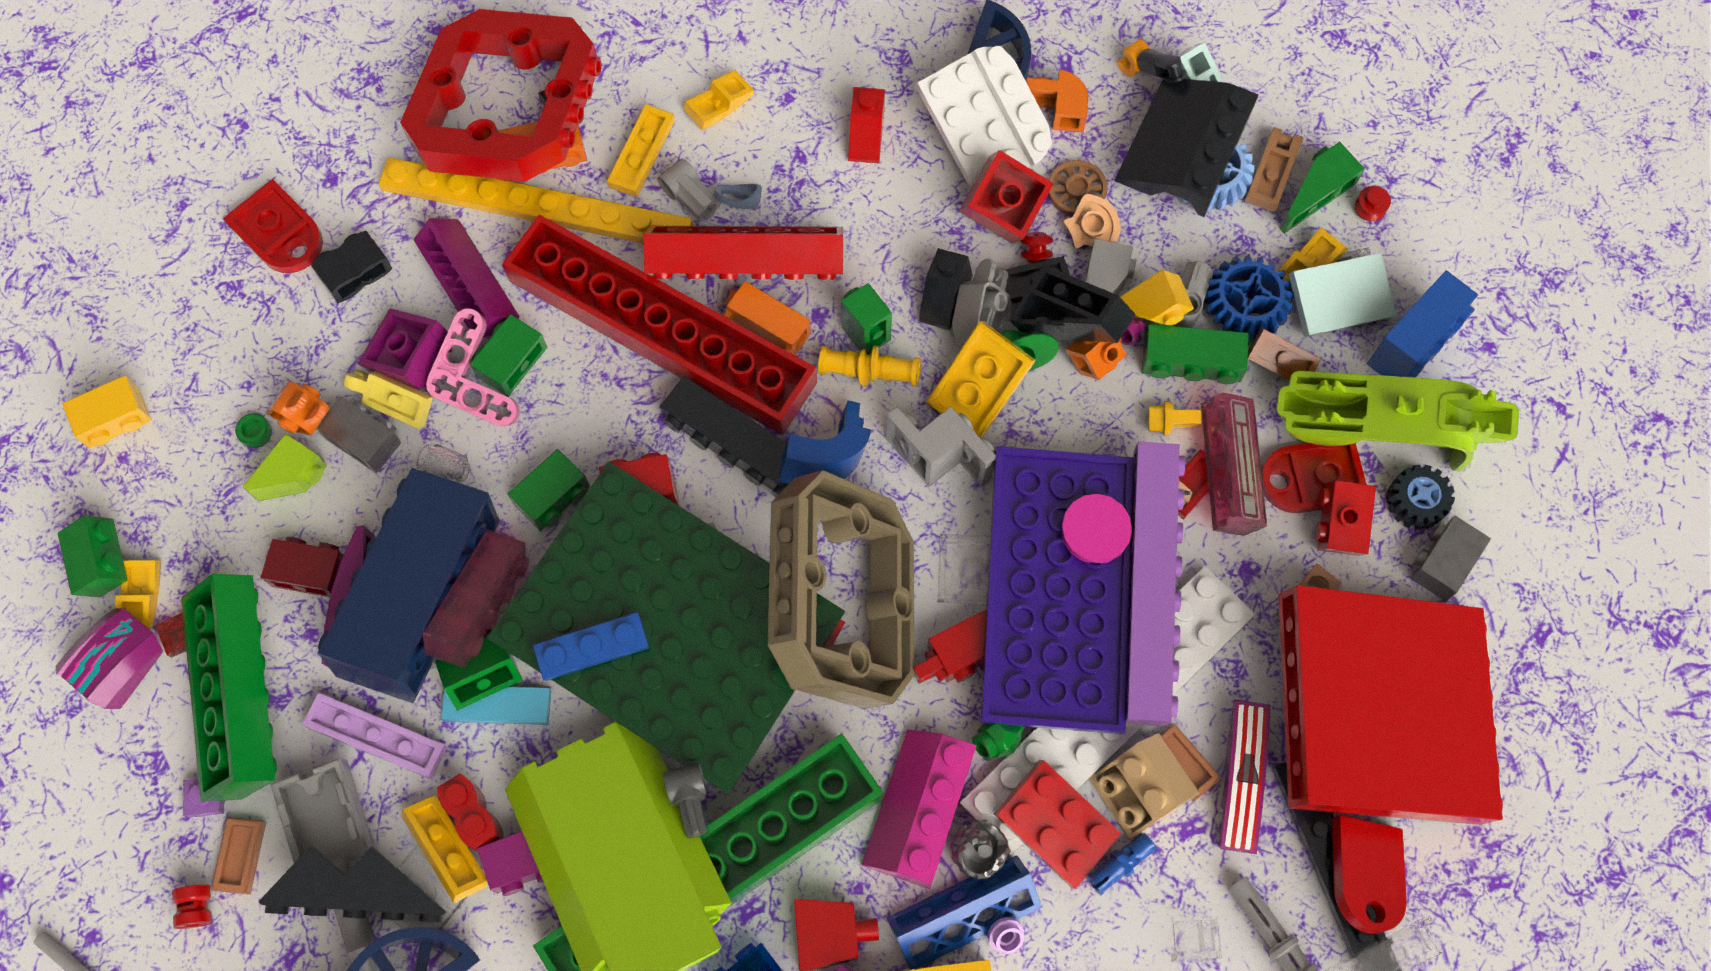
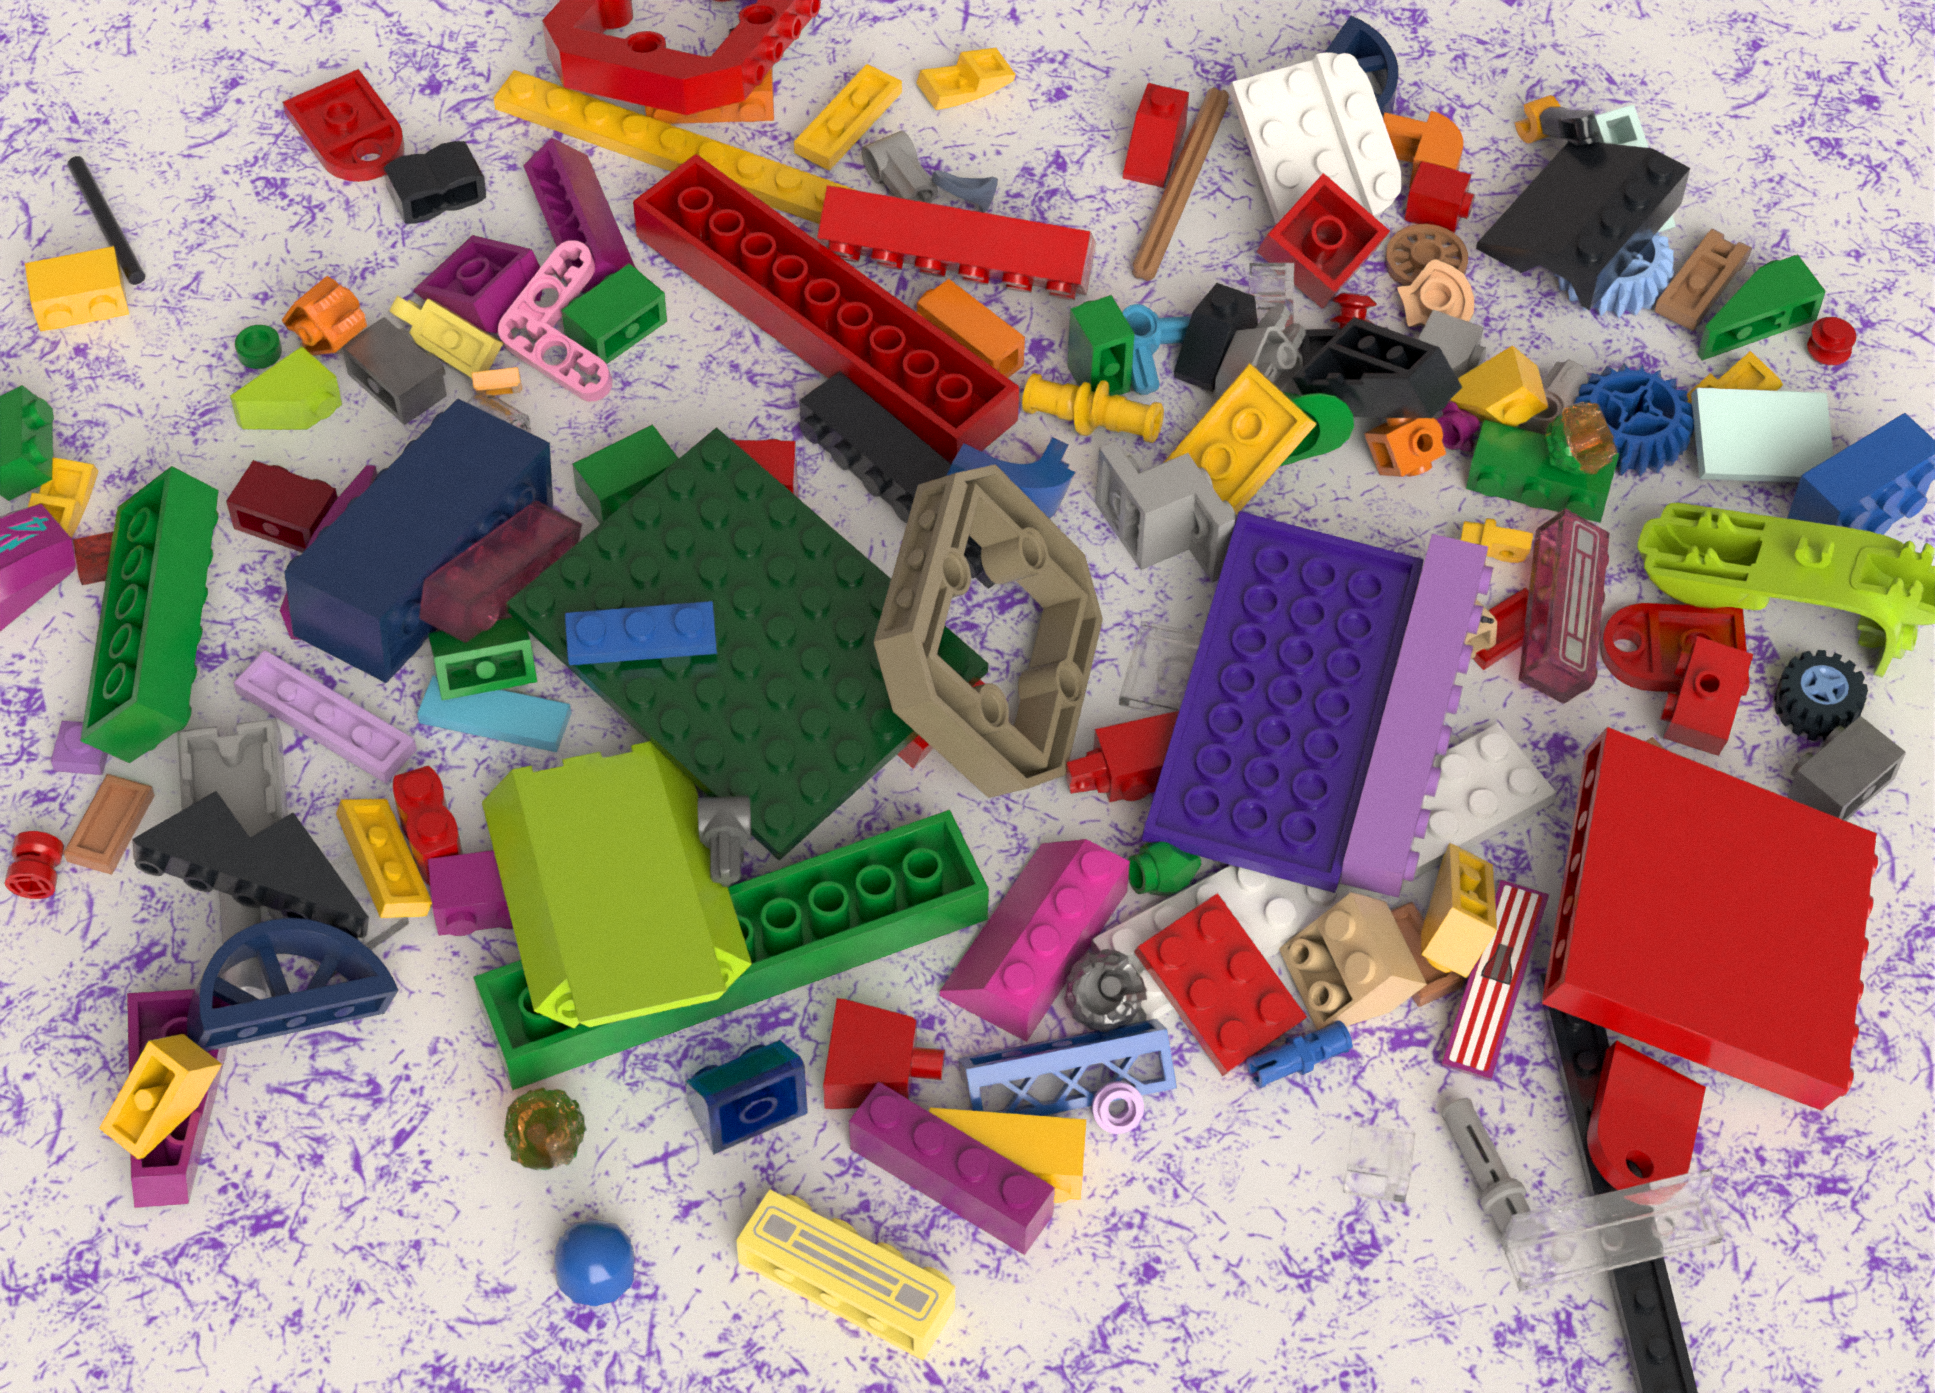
camera: 10 degrees right, 15 degrees down
(115, 344) = (106, 220): none -> black bar
(436, 434) = (497, 381): none -> light orange tile
(891, 160) = (1180, 184): none -> medium nougat axle
(898, 292) = (1149, 335): none -> dark azure axle
(977, 241) = (1272, 286): none -> clear panel
(1078, 138) = (1439, 196): none -> red brick
(1096, 528) = (1352, 629): dark pink tile -> none
(1212, 731) = (1460, 912): none -> yellow slope
(1223, 335) = (1580, 439): none -> clear orange piece
(1280, 355) = (1654, 486): plate -> none

